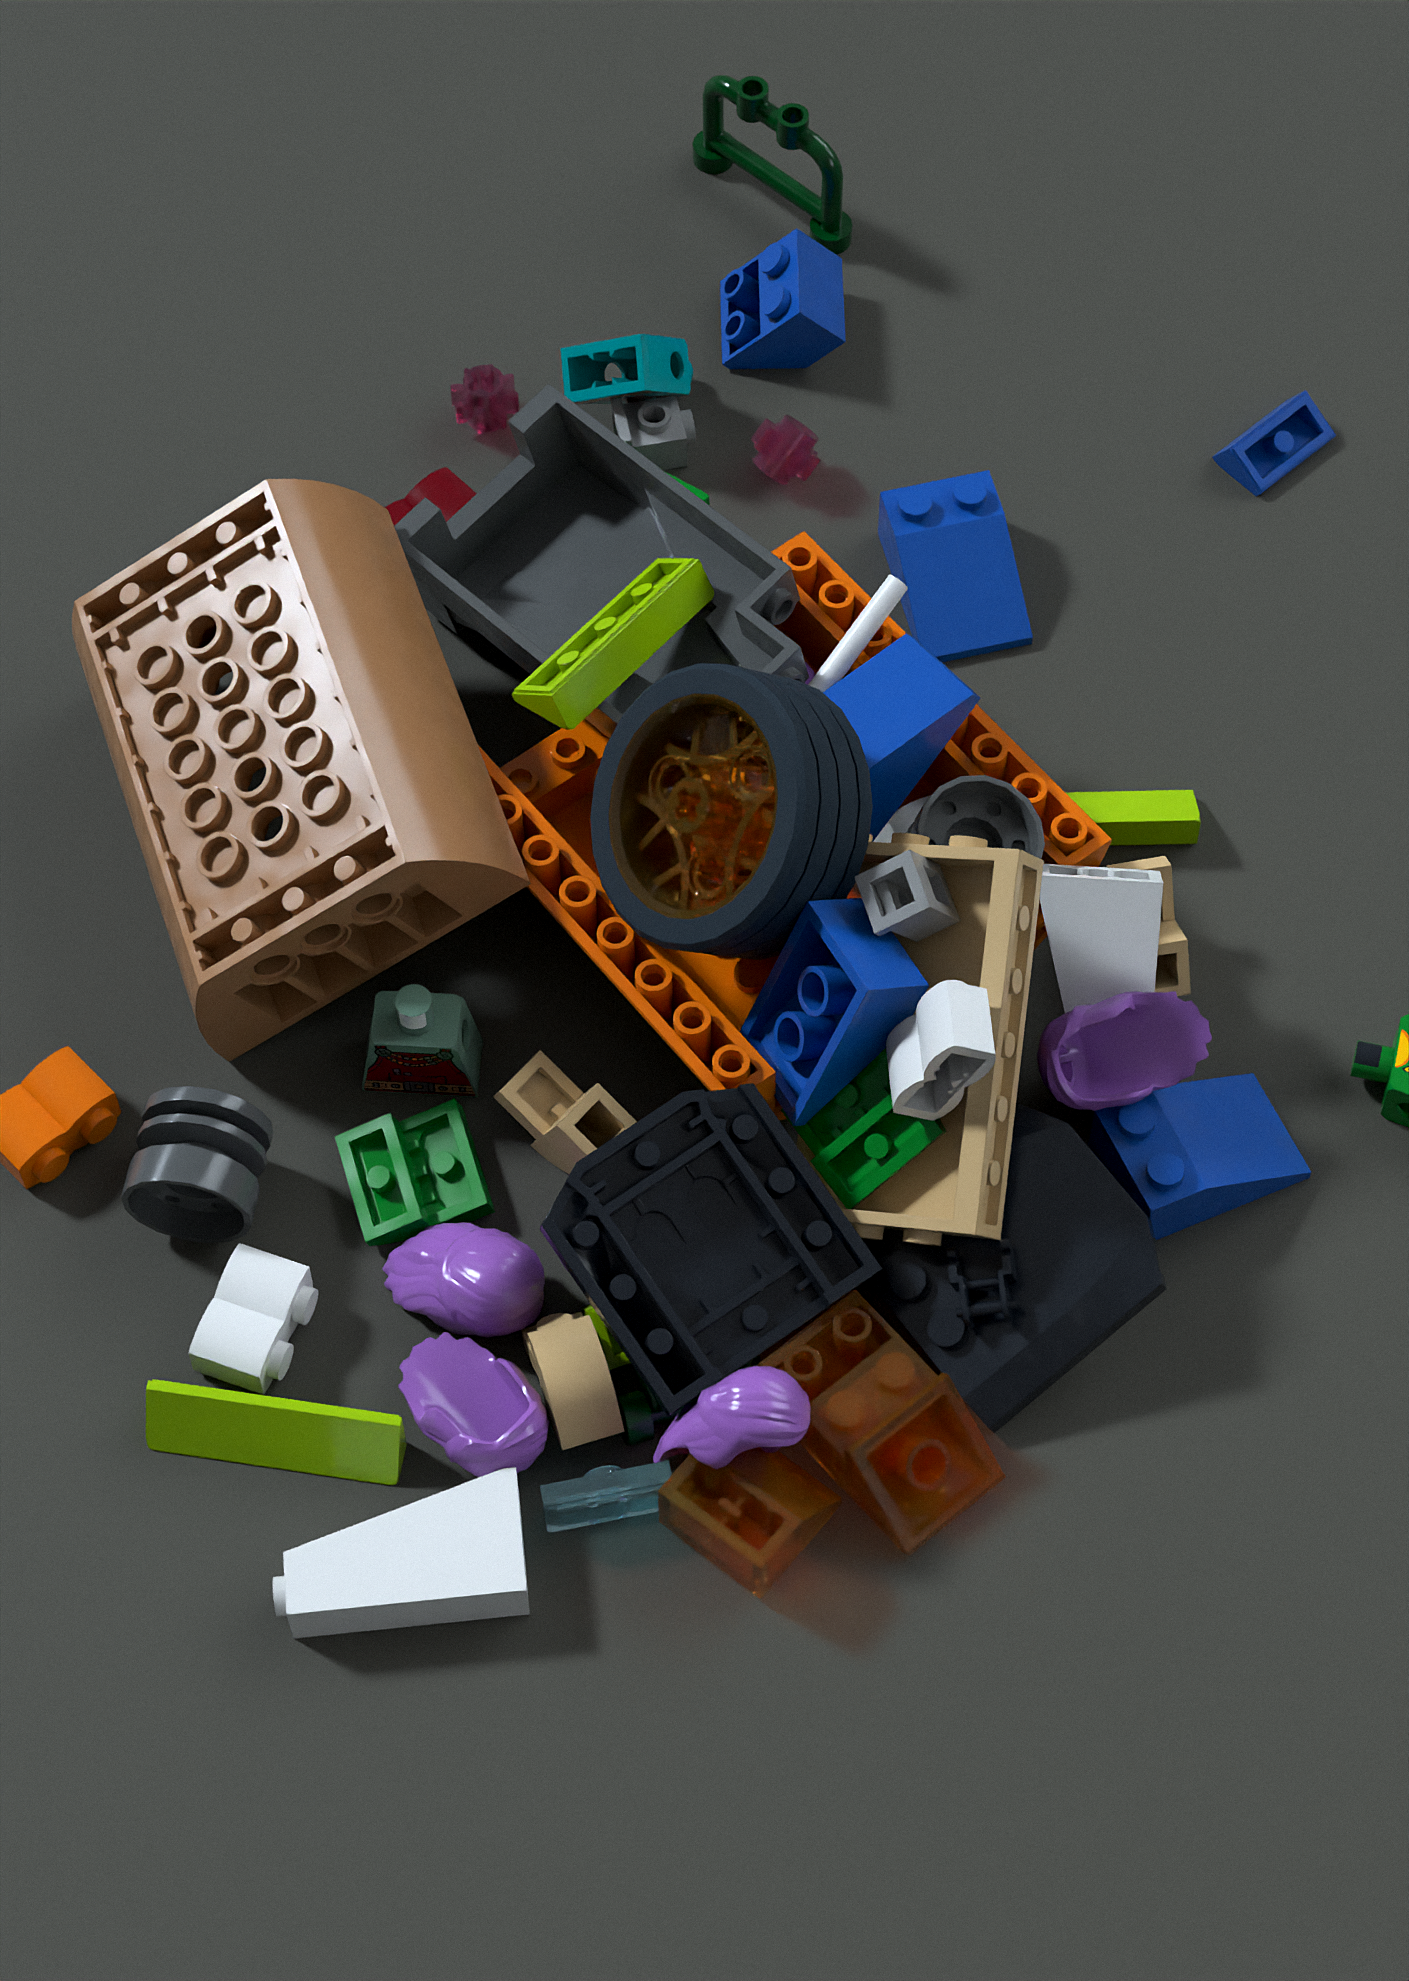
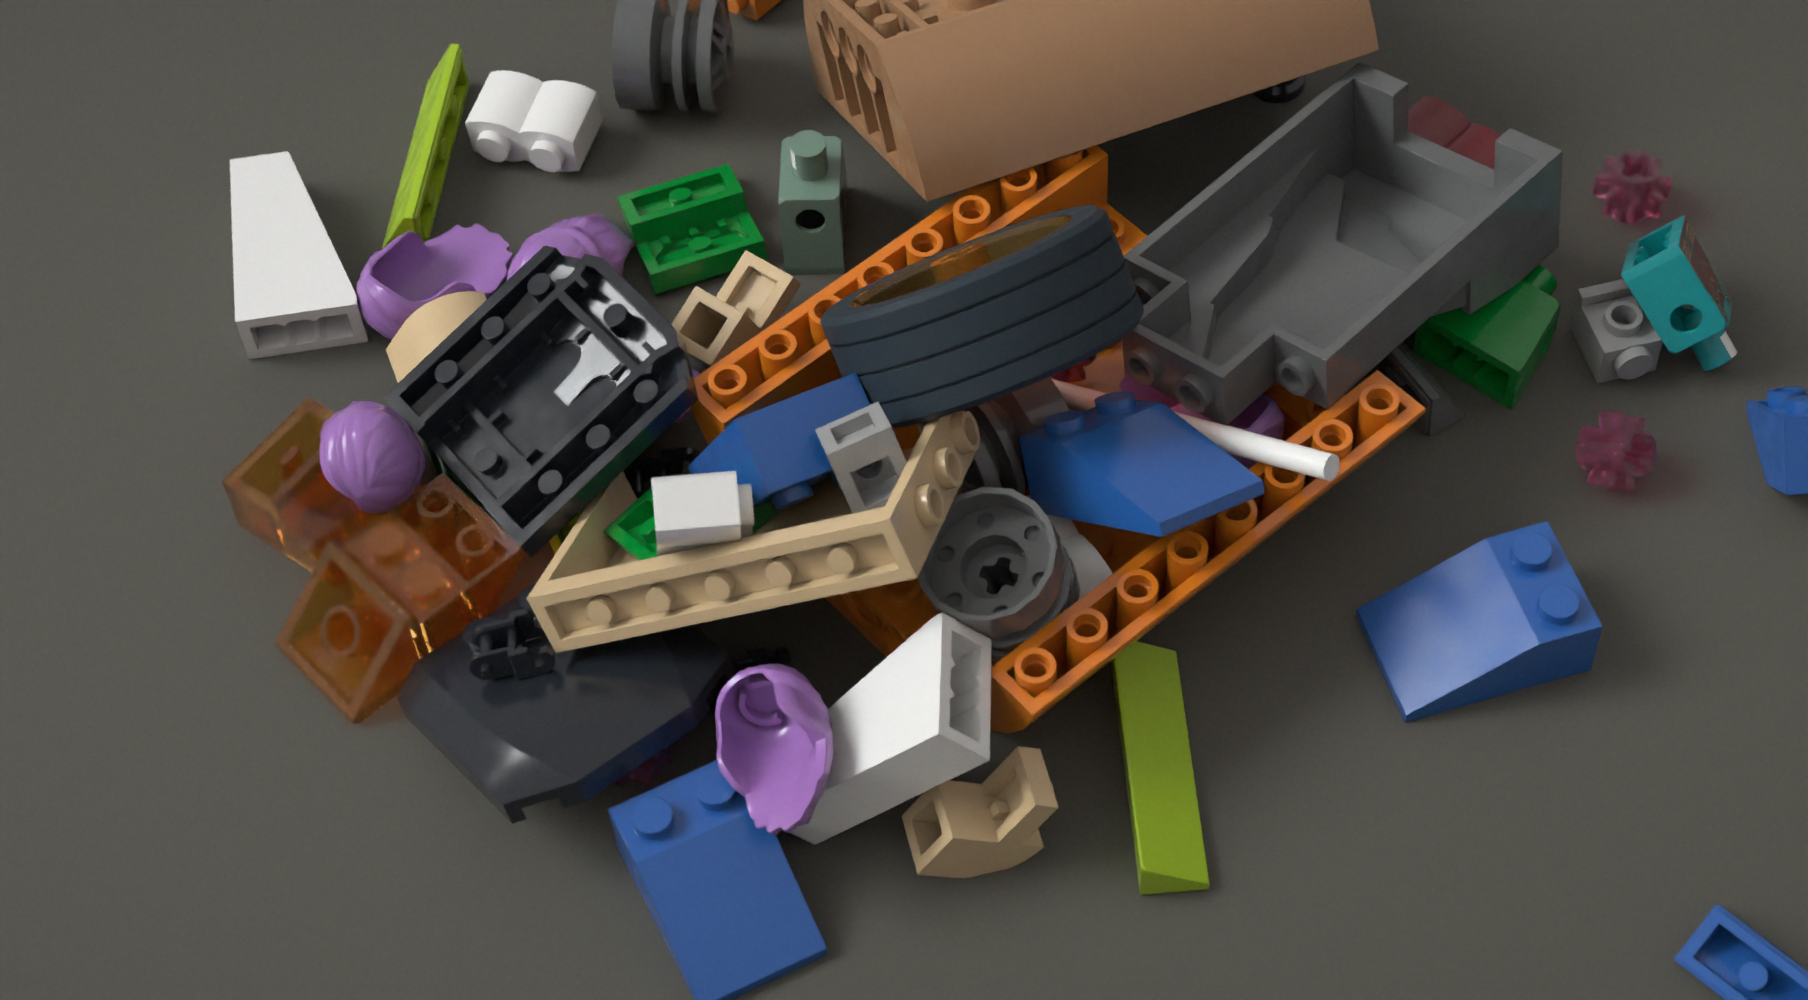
camera: 90 degrees right, 5 degrees down
(603, 1495) = (340, 381): clear light blue plate -> none
(616, 641) = (1233, 244): lime slope -> none

